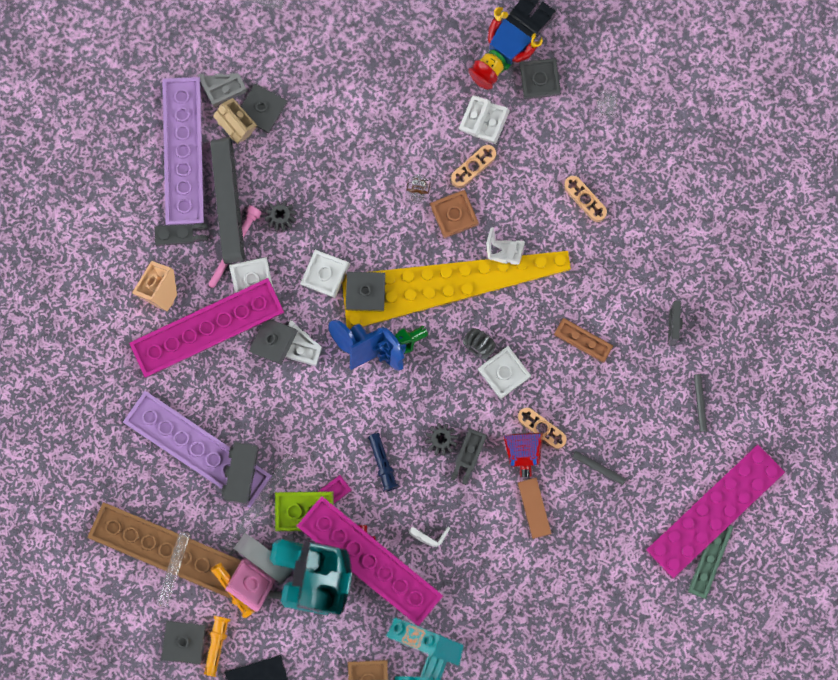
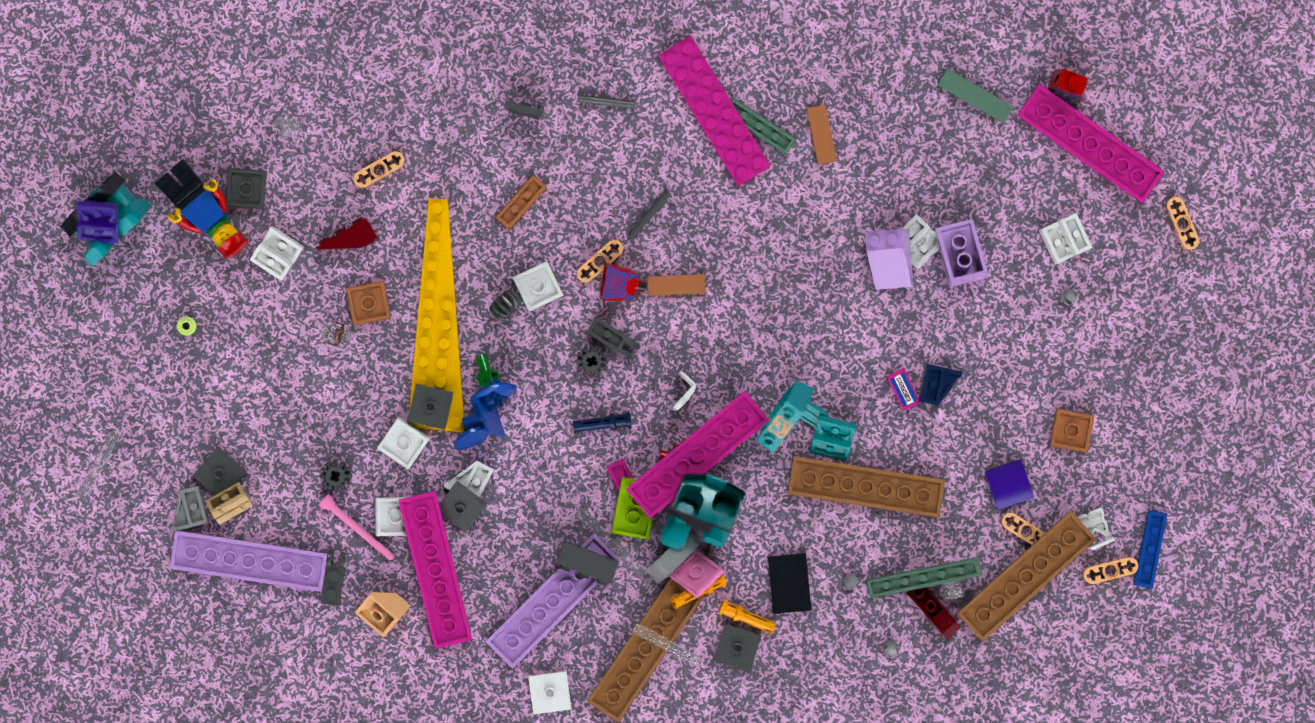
camera: 80 degrees left, 10 degrees up
(106, 464) = (549, 692): none -> white plate
(227, 200) = (309, 525): dark grey beam -> none
(397, 55) = (192, 328): none -> yellowish green plate
(460, 171) = (335, 283): light nougat beam -> none
(510, 252) = (417, 254): white piece -> none
(516, 190) = (355, 237): none -> dark red slope
(716, 623) = (821, 134): none -> nougat tile

